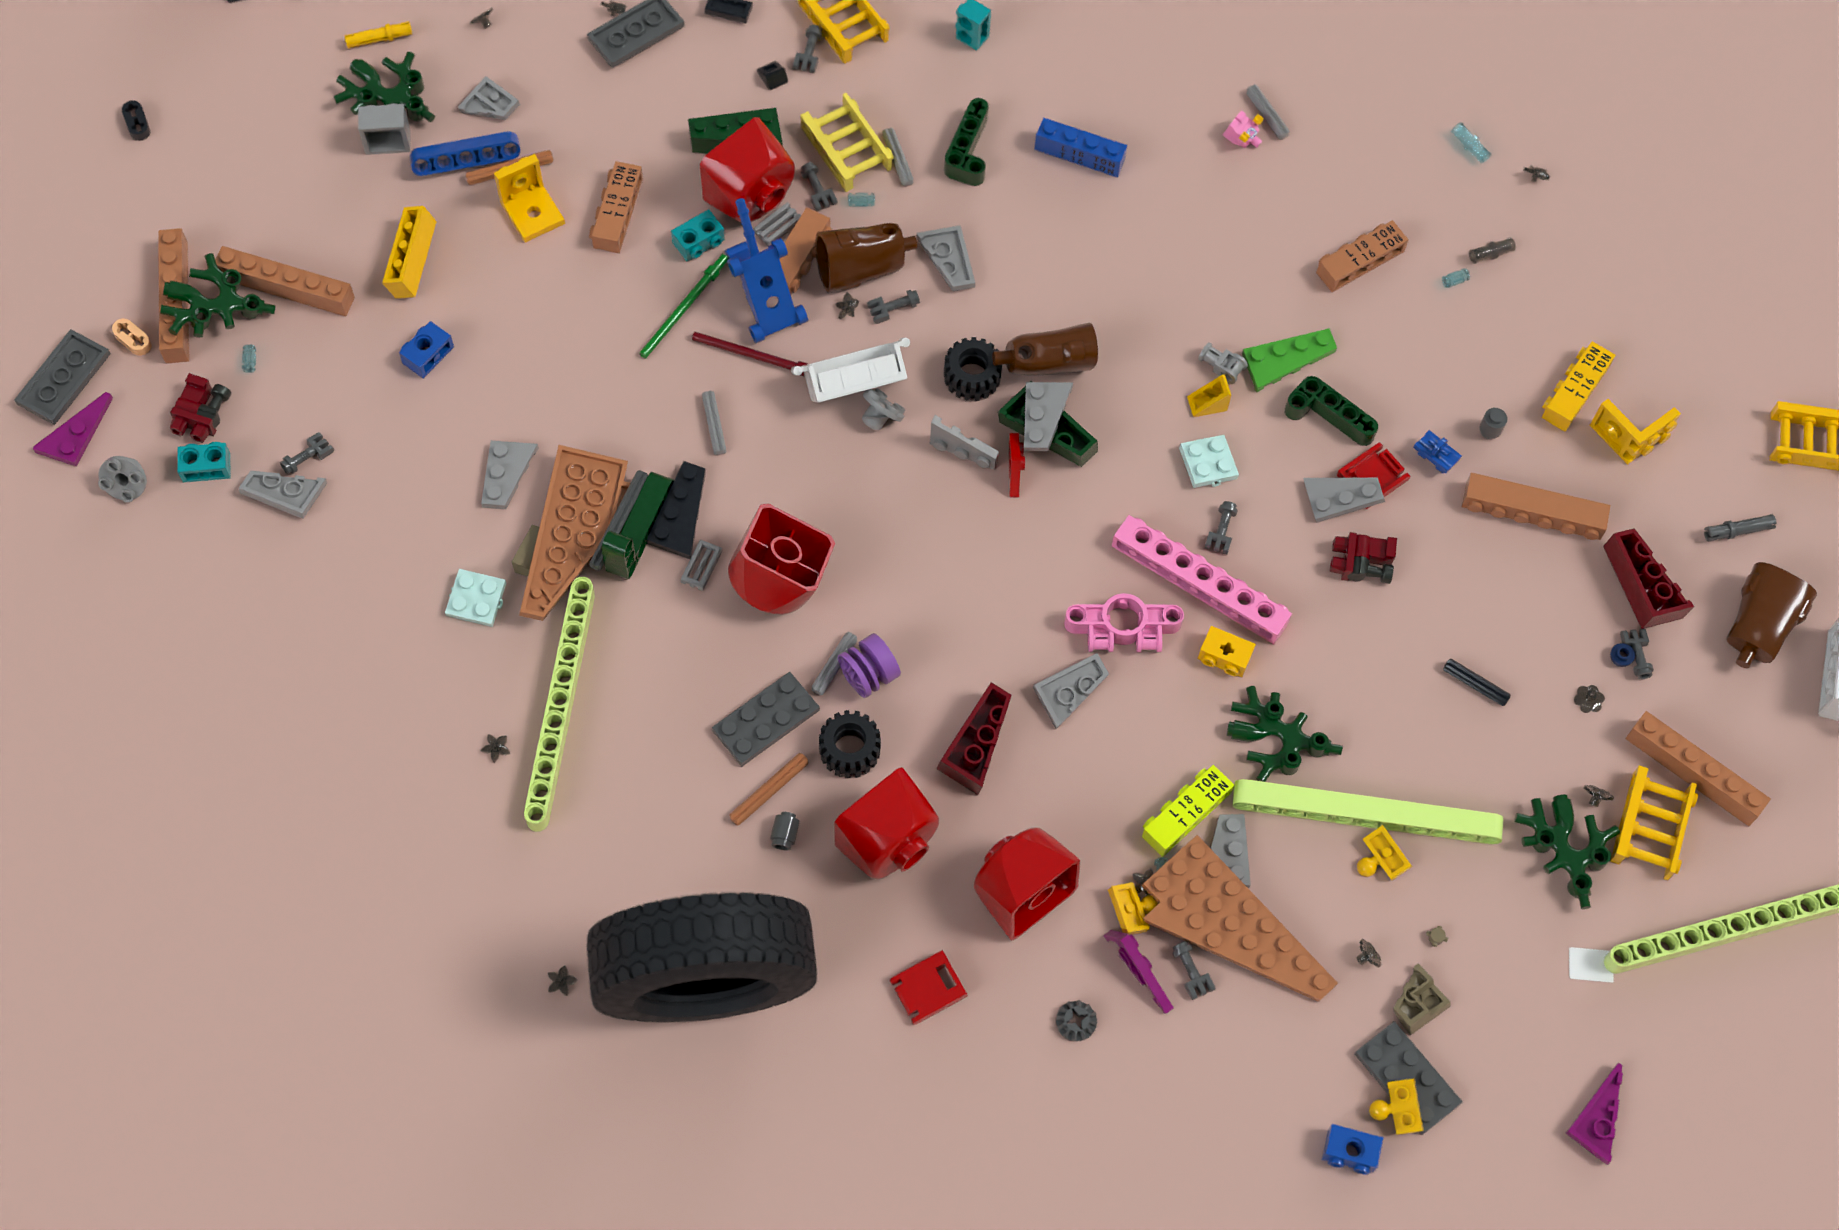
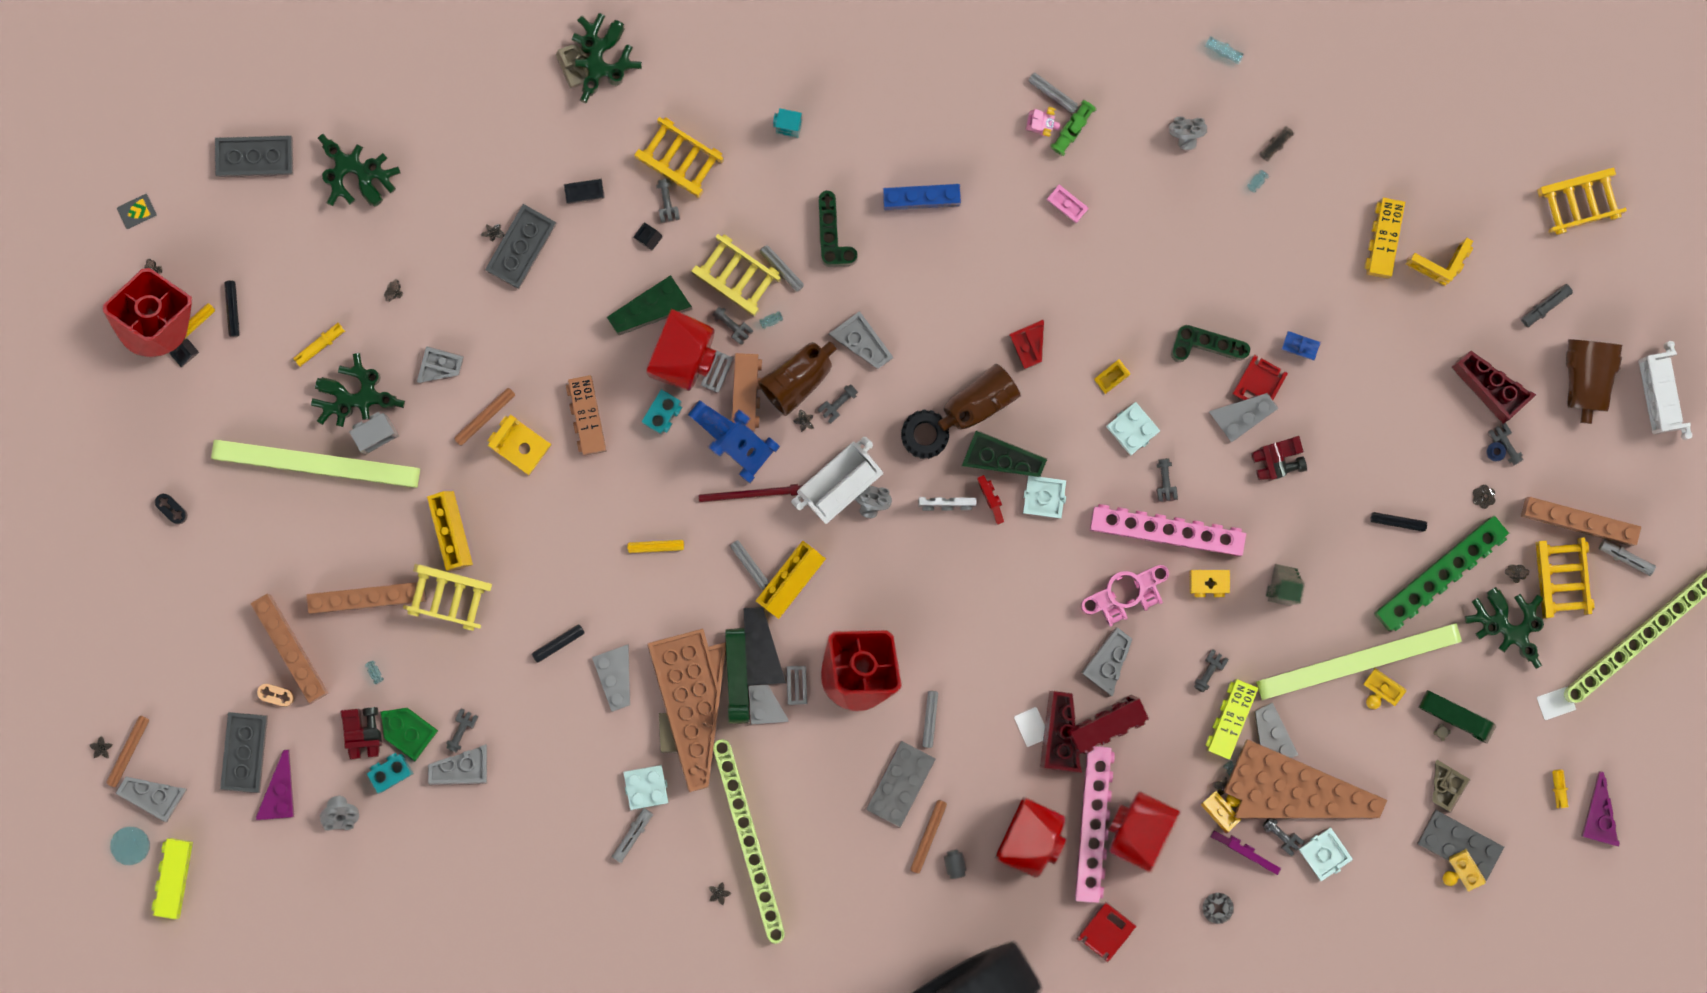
camera: 25 degrees left, 20 degrees up
(202, 308) = (335, 644): dark green plant -> none
(249, 432) = (407, 731): none -> green tile
(309, 138) = (315, 463): none -> yellowish green beam
(374, 287) = (442, 579): none -> light yellow fence
(423, 361) = (506, 616): blue brick -> none
(431, 641) = (645, 815): none -> light grey pin
(457, 161) = (446, 423): blue beam -> none
(462, 412) = (558, 643): none -> black axle
(620, 515) = (722, 681): dark grey axle -> none
(621, 362) = (655, 546): none -> yellow axle
(653, 571) = (764, 706): none -> light grey wing
(710, 274) = (687, 438): green bar -> none
(750, 450) = (778, 597): none -> yellow brick
(849, 725) = (984, 791): black tyre -> none
(872, 663) = (958, 715): medium lavender wheel -> none
(946, 722) = (1031, 726): none -> white sticker
(1007, 780) = (1096, 892): none -> bright pink brick
(1038, 743) = (1108, 724): none -> dark red wedge
(1043, 411) = (997, 455): light grey wing -> none
(1076, 487) = (1044, 497): none -> light aqua plate
(1131, 331) = (1029, 344): none -> red wing
(1168, 758) = (1202, 685): none -> dark grey hinge
(1224, 362) = (1110, 340): light grey connector -> none
(1235, 216) = (1067, 204): none -> bright pink plate
(1235, 1013) = (1325, 854): none -> light aqua plate
(1271, 724) = (1281, 625): dark green plant -> none
(1274, 149) = (1075, 126): none -> bright green piece
(1277, 359) = (1153, 312): bright green wing -> none
(1312, 683) = (1285, 586): none -> wedge
(1362, 255) = (1179, 195): nougat brick -> none
(1367, 1145) = (1431, 912): blue brick -> none
(1368, 954) = (1400, 768): clear smoke plant -> none
(1398, 201) = (1188, 131): none -> light grey plate
(1484, 937) = (1458, 716): none -> dark green beam
(1493, 423) = (1333, 302): dark grey brick -> none
(1536, 506) = (1390, 357): nougat brick -> none
(1537, 173) = (1286, 54): clear smoke plant -> none
(1559, 1063) = (1560, 788): none -> yellow axle
(1585, 730) = (1498, 536): none -> green brick
(1718, 811) = (1620, 554): none -> light grey pin

